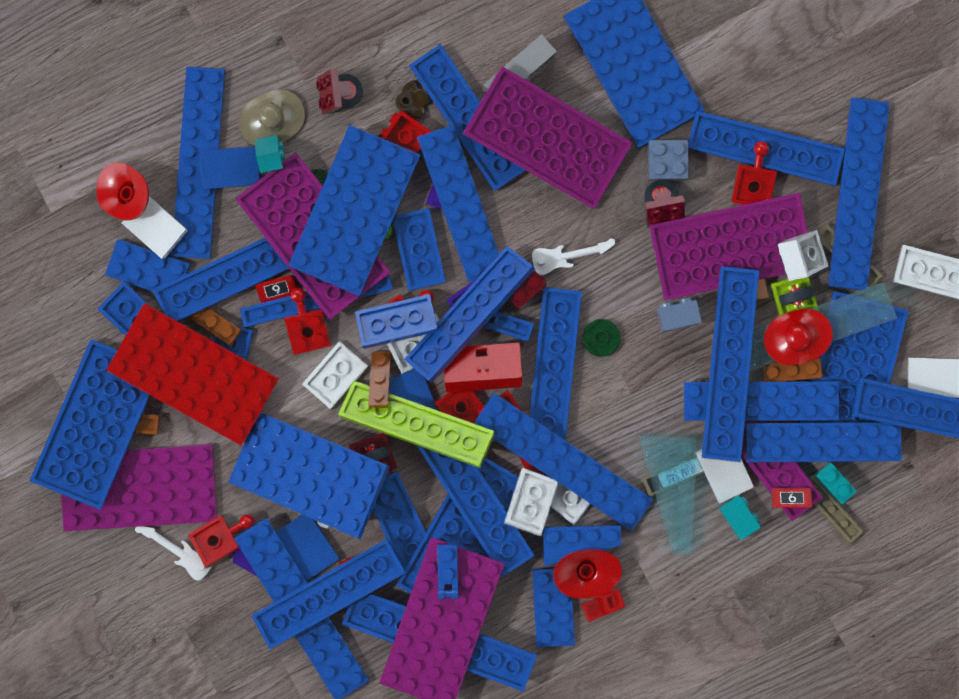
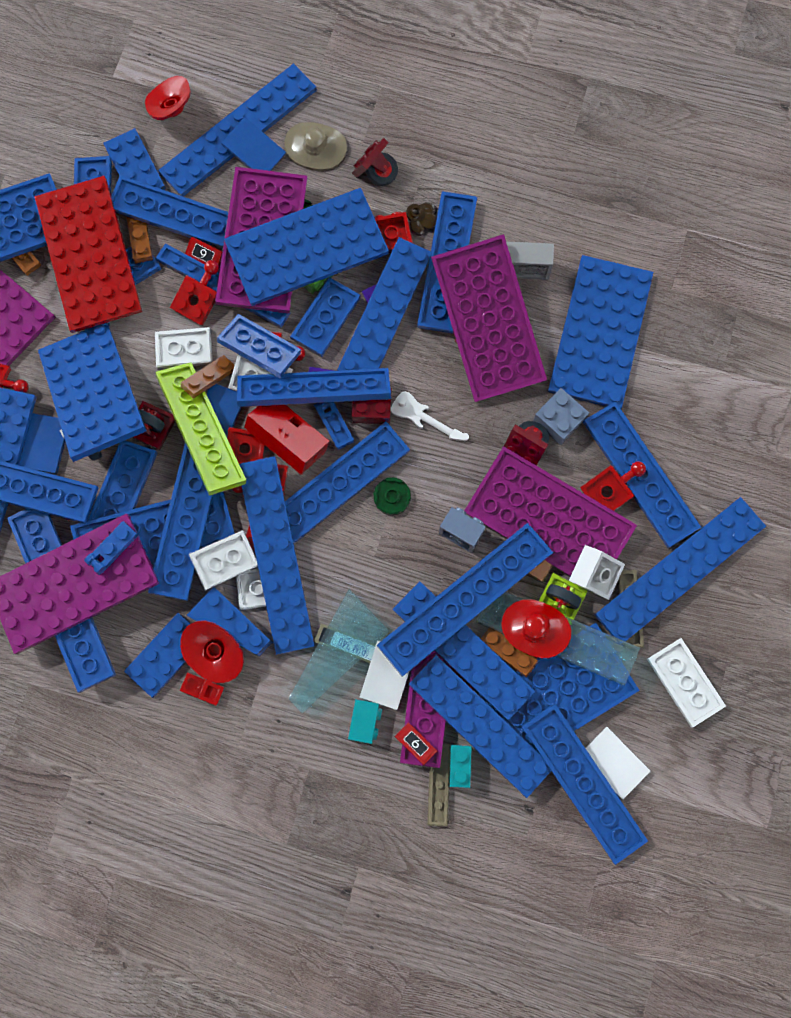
camera: 40 degrees right, 10 degrees down
(157, 229) = (166, 141): white tile -> none
(269, 153) = (288, 159): teal brick -> none

